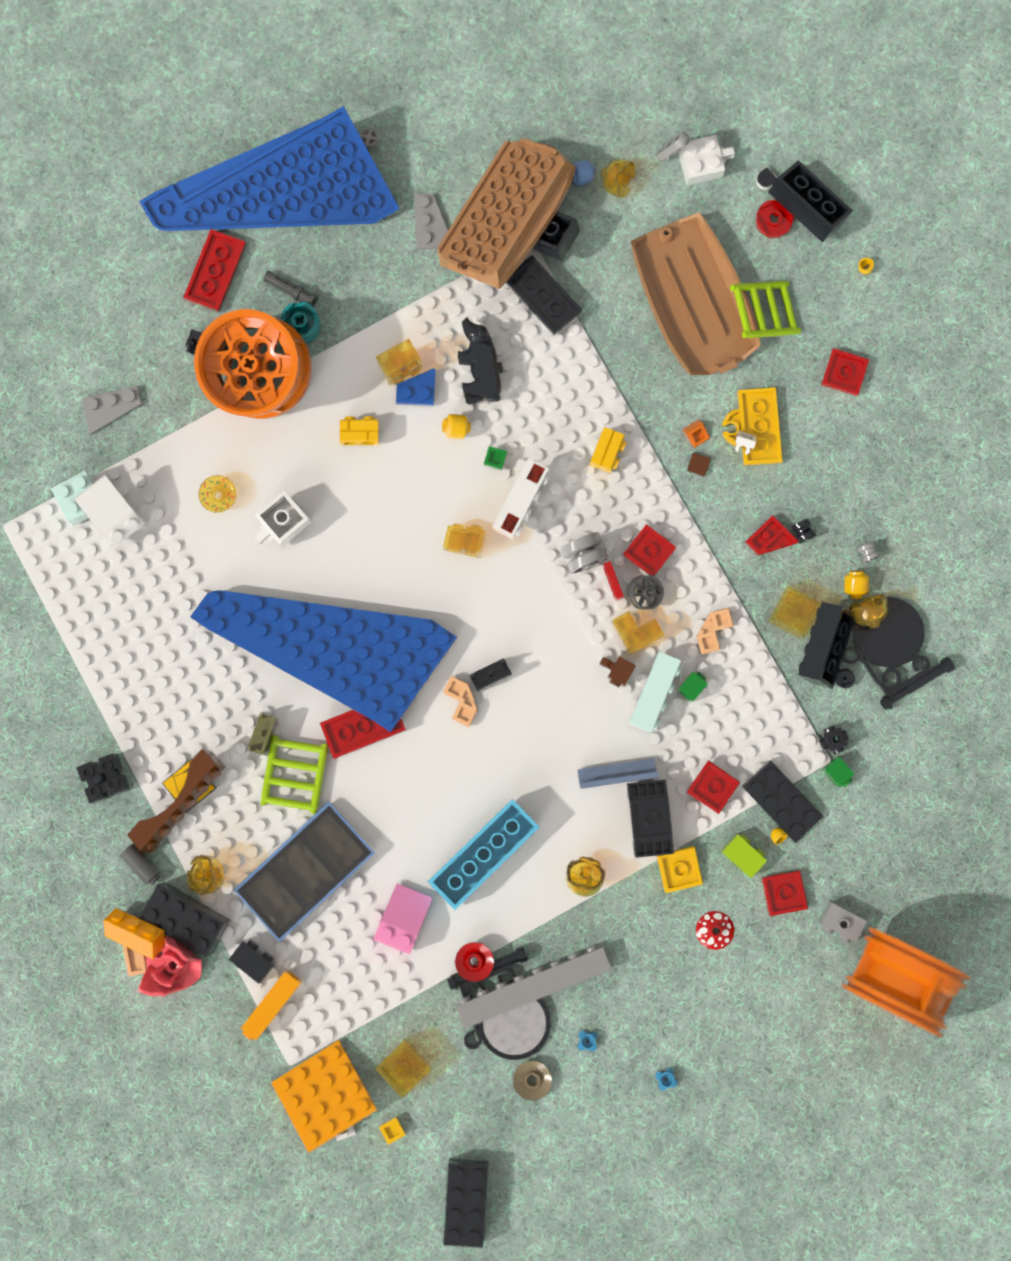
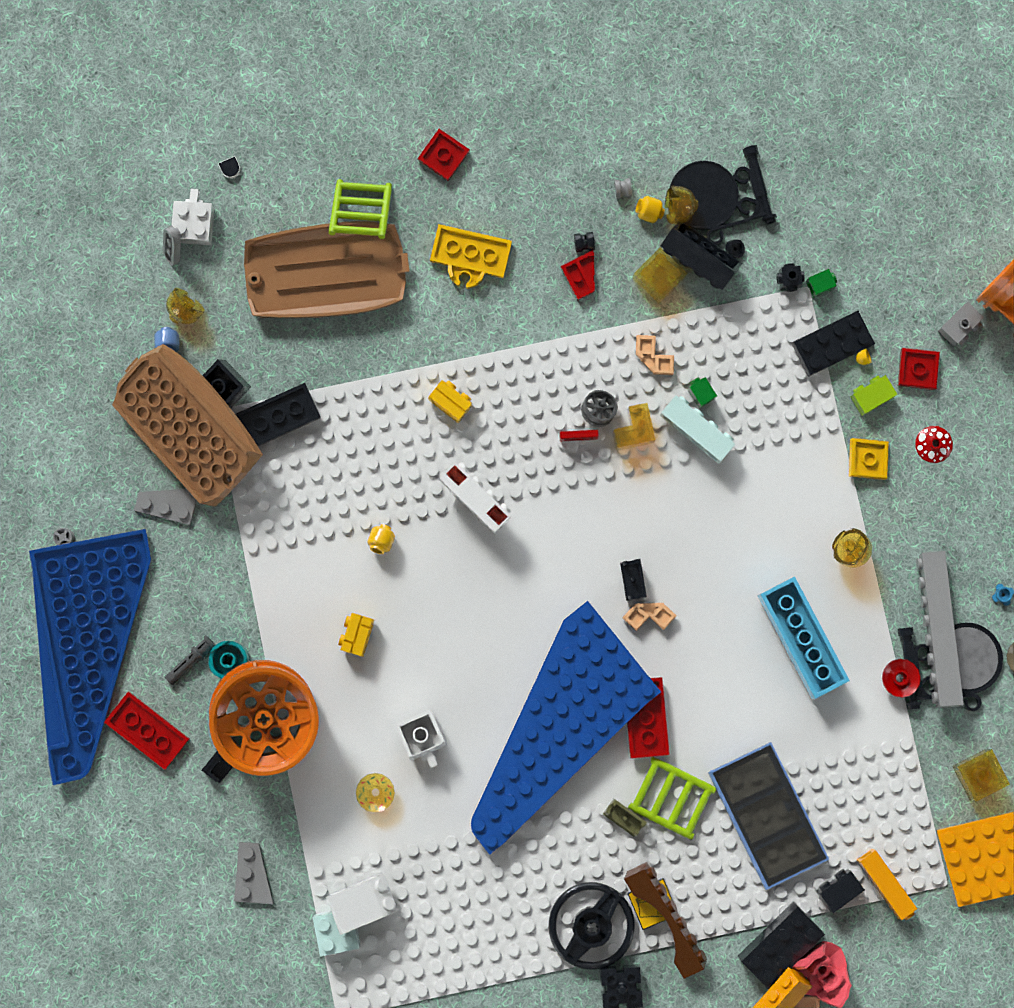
camera: 80 degrees left, 0 degrees up
(140, 864) = (715, 974): dark grey brick -> none
(162, 738) = (601, 915): none -> black piece
(205, 875) = (746, 912): clear yellow cylinder -> none
(399, 362) = (302, 574): clear yellow brick -> none
(403, 918) = (841, 733): bright pink slope -> none
(417, 390) = (332, 566): blue wing -> none
(465, 541) = (497, 564): clear yellow brick -> none
(484, 365) = (328, 493): black animal -> none
(495, 458) = (424, 511): green plate -> none
(584, 552) = (546, 453): light grey wheel -> none
(617, 773) = (763, 488): sand blue fence -> none
(619, 672) = (667, 456): reddish brown brick -> none
(649, 551) = (560, 392): red plate -> none
(650, 818) = (815, 470): black plate -> none
(696, 433) = (458, 312): orange slope -> none
(698, 464) = (489, 320): reddish brown tile -> none
(713, 787) = (802, 403): red plate -> none
(745, 439) = (481, 268): white tile -> none
(769, 228) = (264, 166): red plate -> none
(810, 201) = (268, 133): black brick -> none
(863, 263) = (342, 101): yellow hinge -> none

